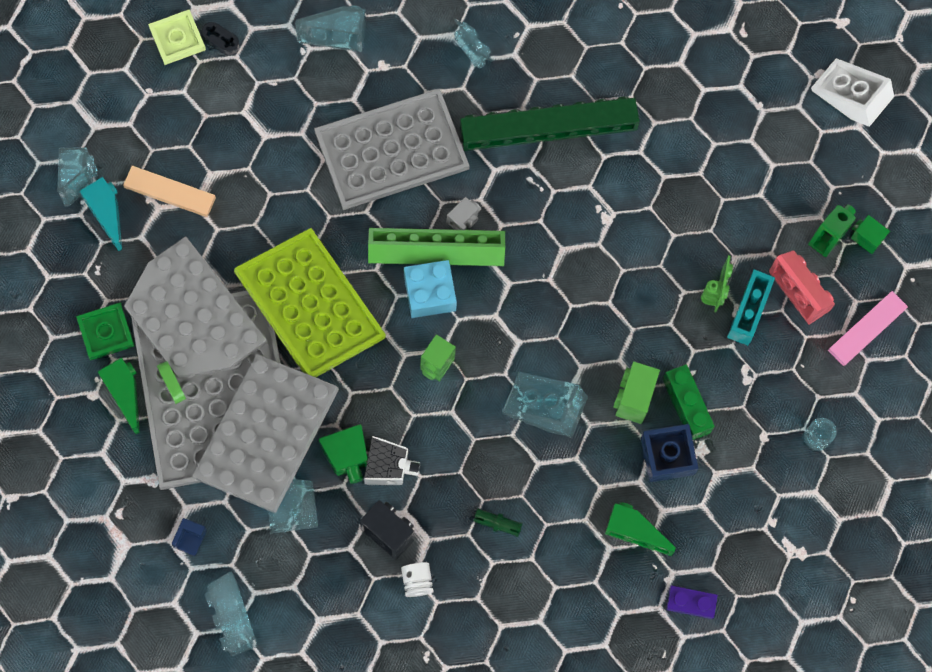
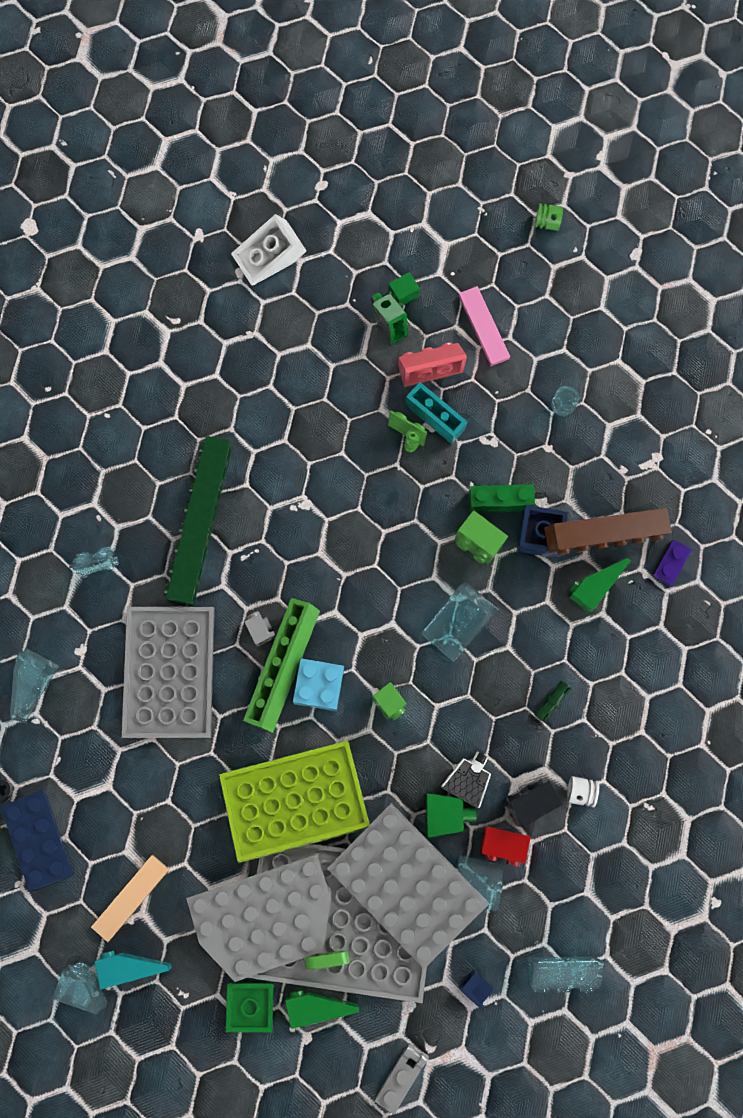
camera: 70 degrees left, 5 degrees up
(82, 494) = (400, 1079): none -> light grey plate
(194, 91) = (36, 840): none -> dark blue plate
(337, 519) = (504, 845): none -> red brick
(696, 516) = (607, 530): none -> reddish brown brick

